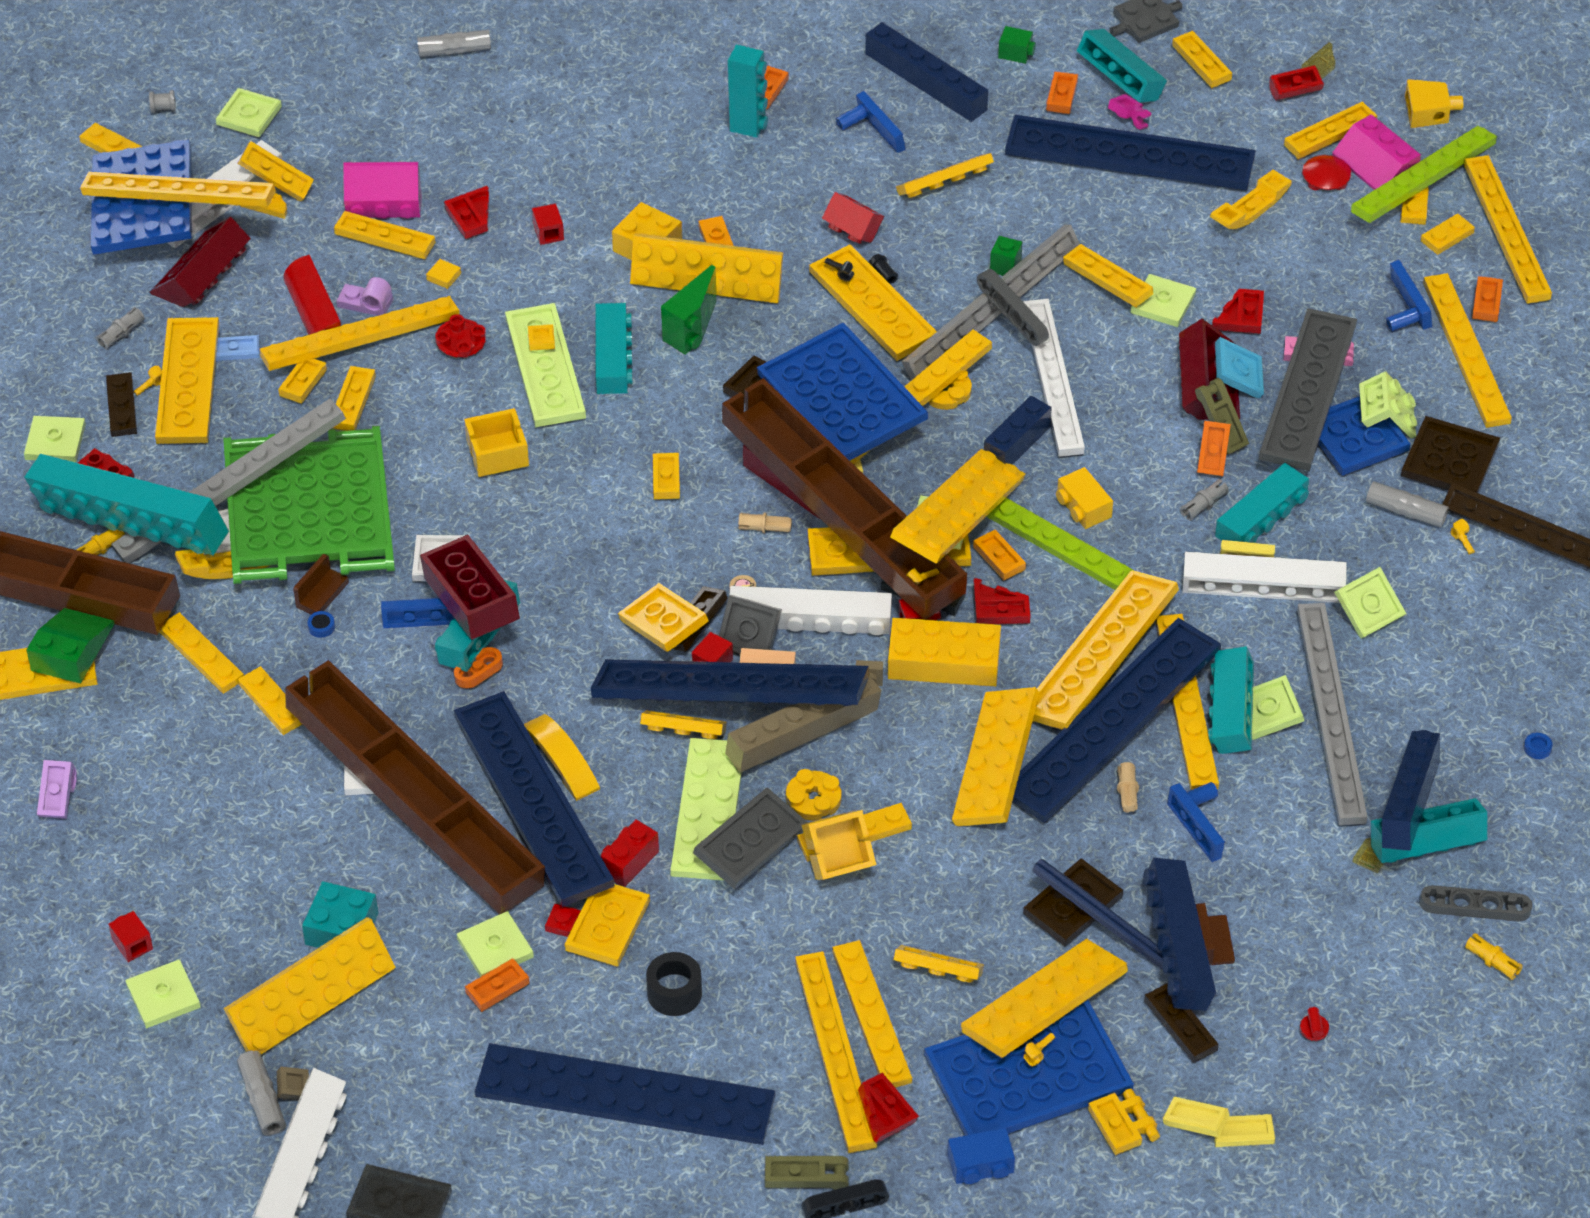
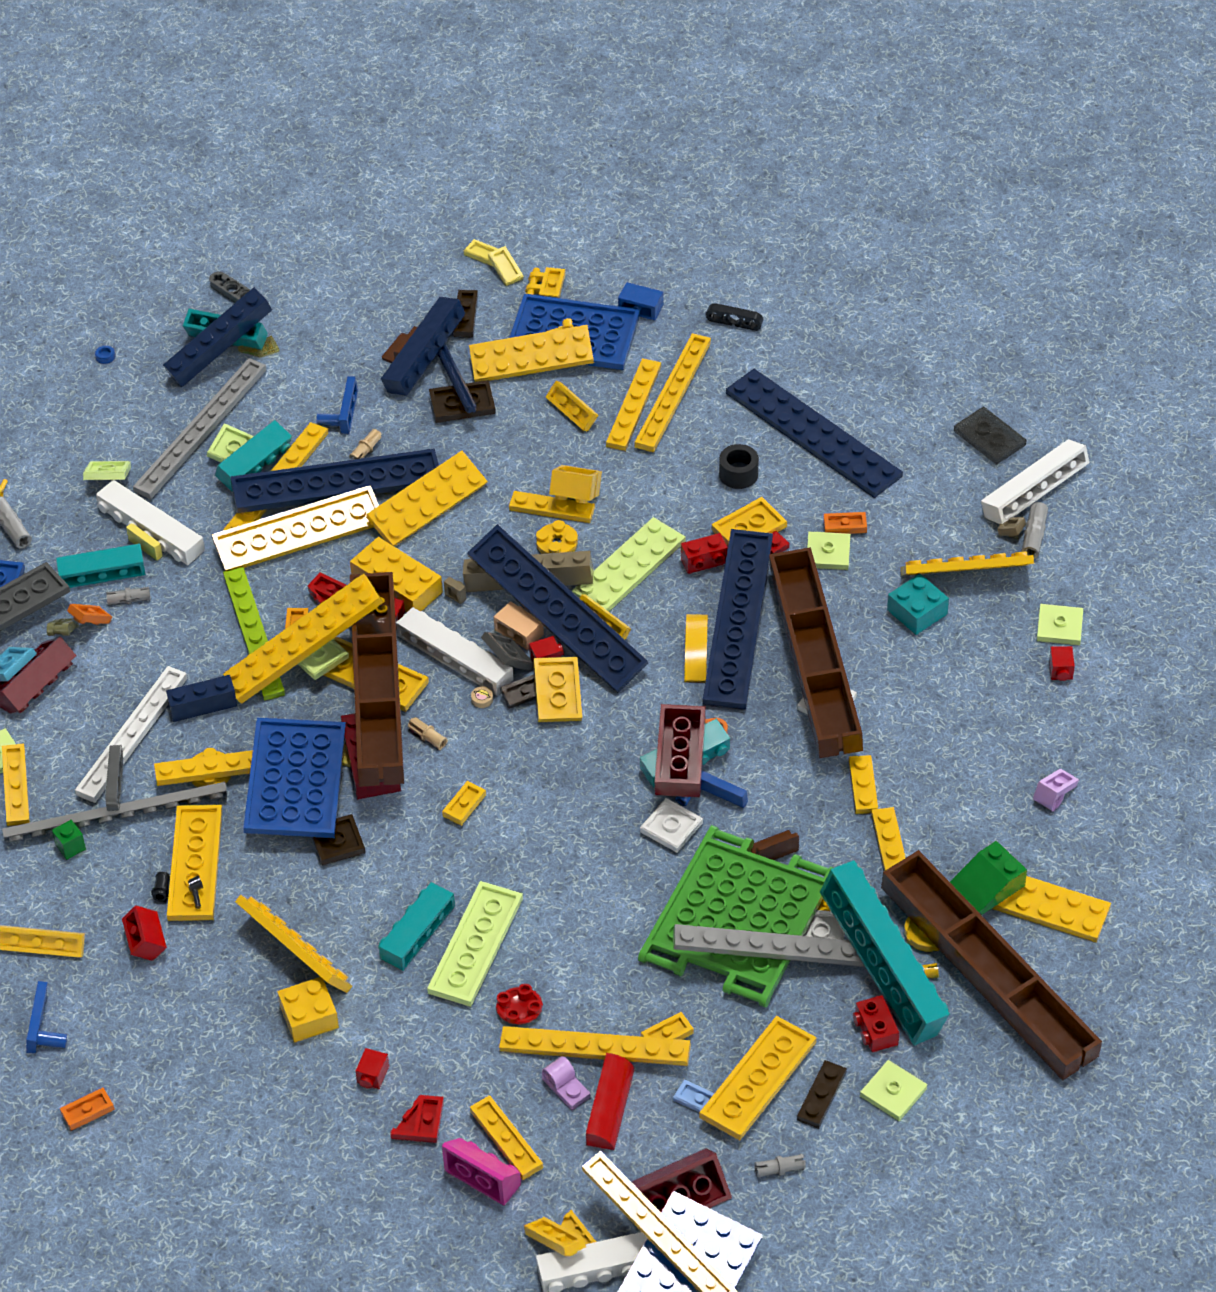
camera: 145 degrees left, 0 degrees up
(155, 379) = (779, 1102): yellow hand -> none
(321, 624) = (791, 821): blue tile -> none
(354, 396) = (641, 993): yellow plate -> none
(443, 273) = (486, 1076): yellow tile -> none
(496, 442) = (566, 883): yellow piece -> none
(541, 337) = (463, 957): yellow tile -> none
(689, 312) = (335, 910): green slope -> none
(715, 231) = (253, 989): light orange plate -> none
(747, 91) = (127, 1062): teal brick -> none
(750, 838) = (622, 522): dark grey plate -> none
(806, 1172) = (743, 342): olive plate -> none
(885, 1107) = (674, 344): red wing -> none
(1084, 498) = (204, 632): yellow brick -> none
(1314, 1026) = (395, 278): red plate -> none
(1493, 956) = (260, 264): yellow pin -> none

